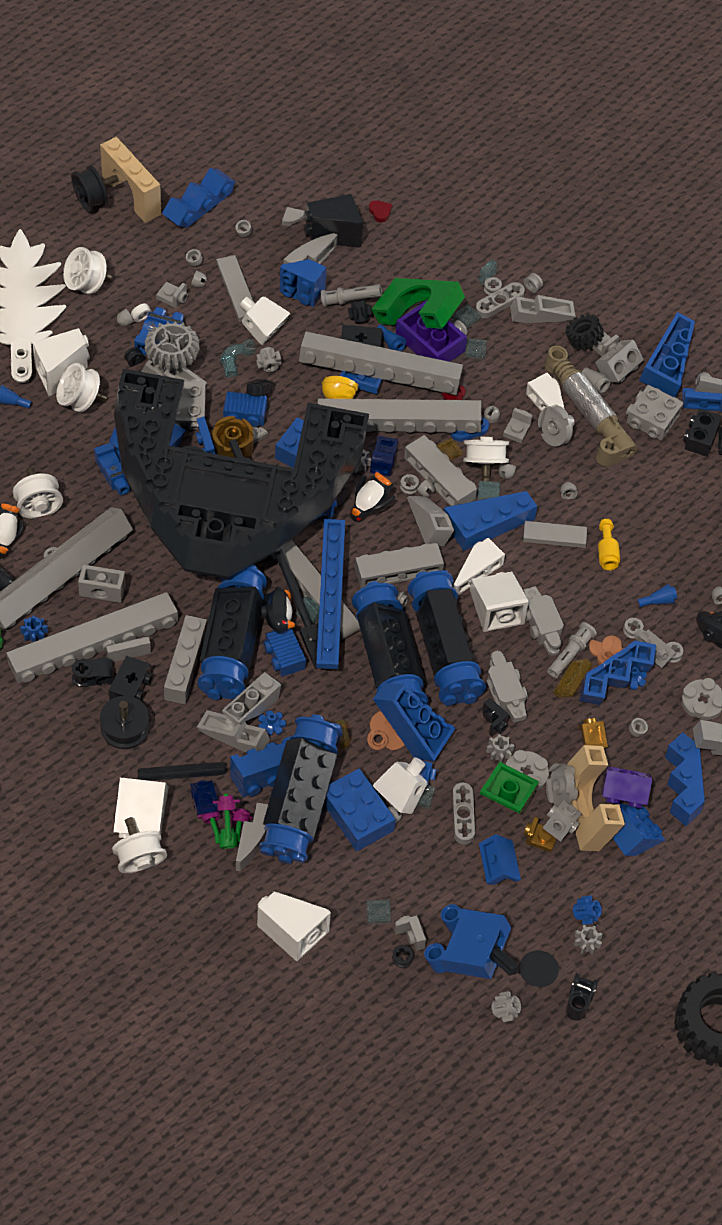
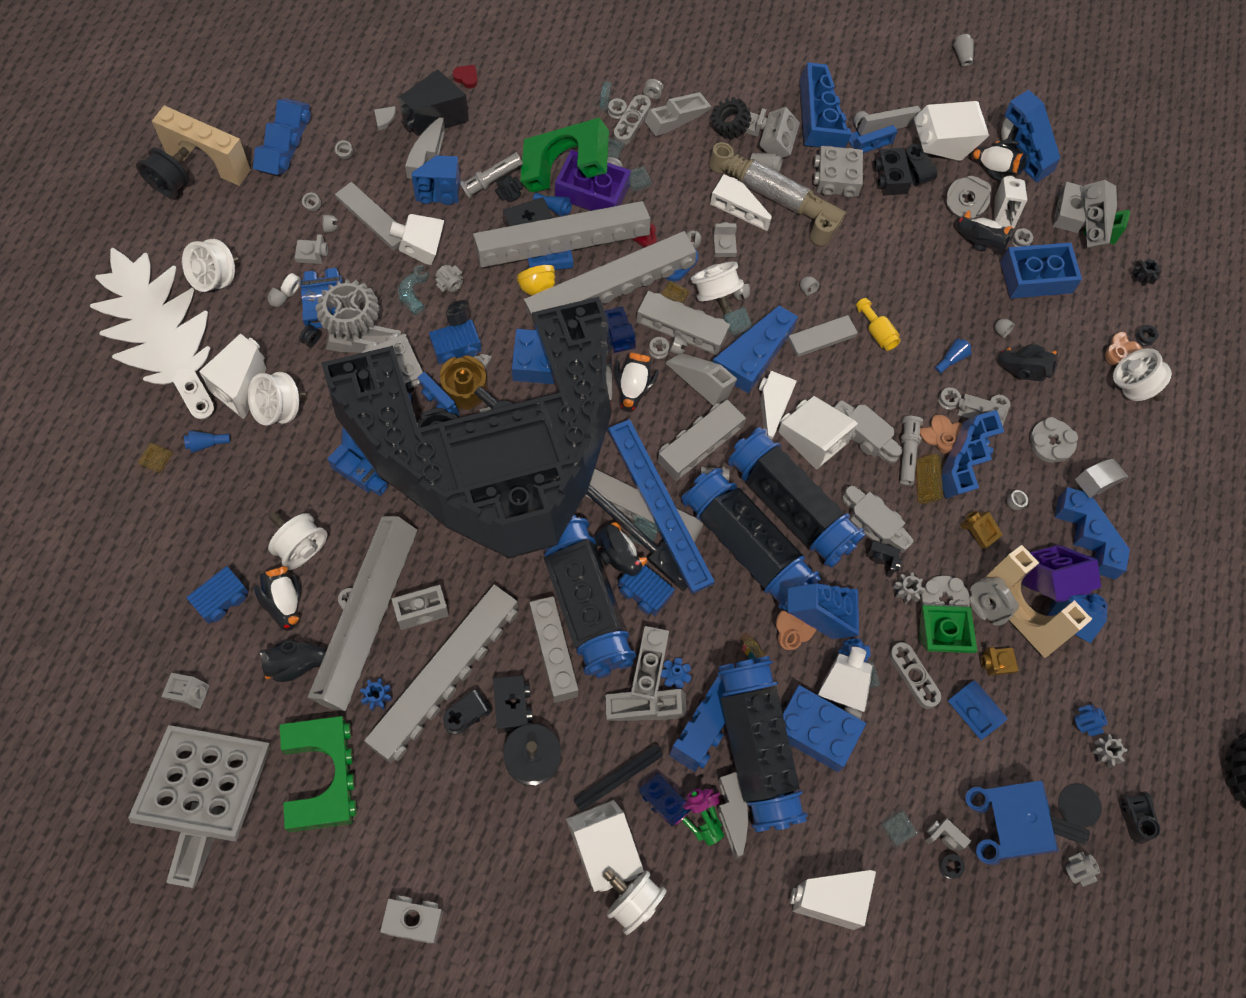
camera: 30 degrees left, 10 degrees up
(129, 648) = (488, 667): light grey tile -> none
(562, 820) = (1016, 638): light grey brick -> none
(563, 422) = (771, 217): light grey plate -> none

